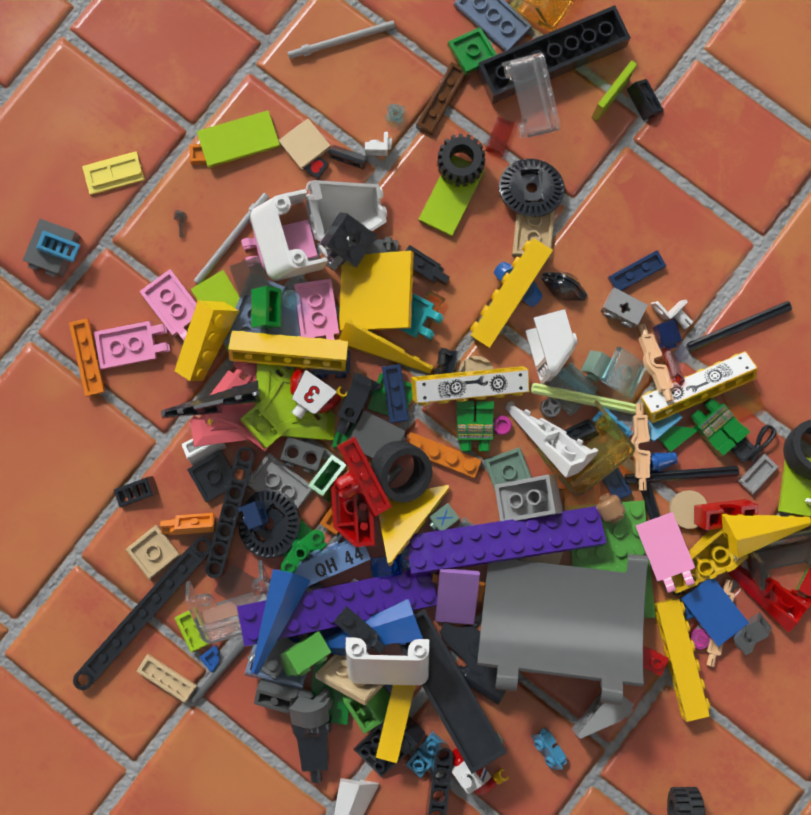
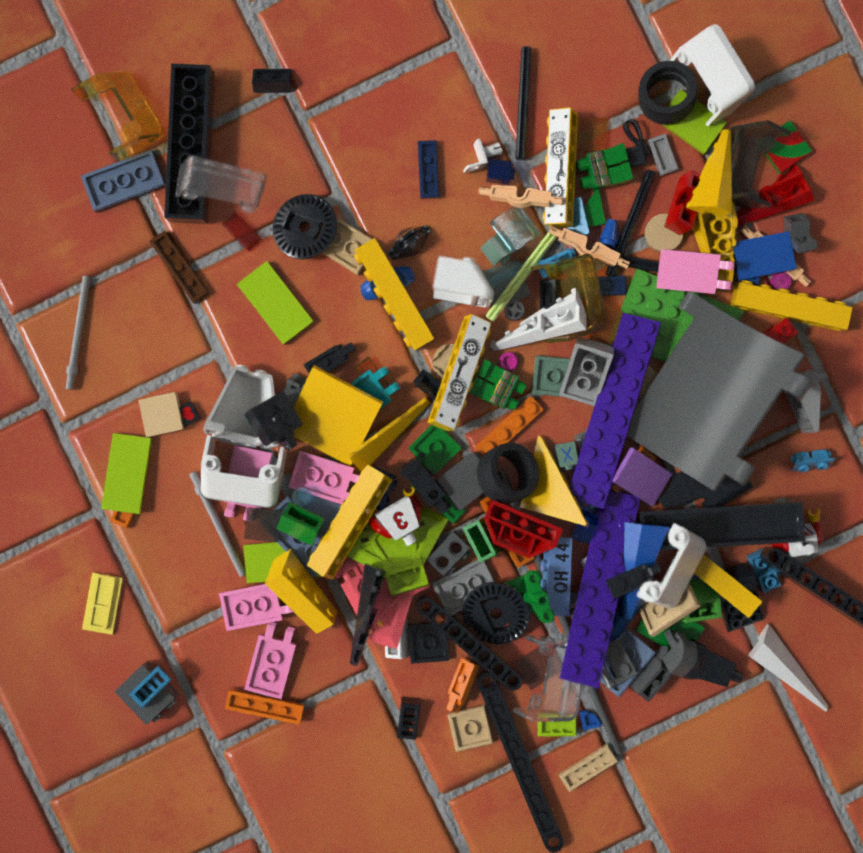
camera: 60 degrees left, 5 degrees up
(181, 217) = (174, 560): clear smoke hand -> none
(255, 515) = (484, 623): dark blue brick -> none
(282, 598) = (573, 635): blue wedge -> none
(304, 654) = (630, 637): bright green slope -> none
(348, 157) = (192, 380): black slope -> none
(360, 478) = (499, 514): red plate -> none
(378, 148) = (197, 351): white bracket -> none
(395, 108) = (167, 317): clear light blue plate -> none
(395, 394) = (434, 444): dark blue tile -> none
(466, 146) = (241, 264): black tyre -> none
(471, 49) = (147, 217): green tile -> none
(610, 508) = (631, 302): medium nougat head -> none
(614, 90) = (251, 105): lime tile -> none
(633, 308) = (461, 189): light grey brick -> none
(673, 366) = (531, 181): clear red tile -> none

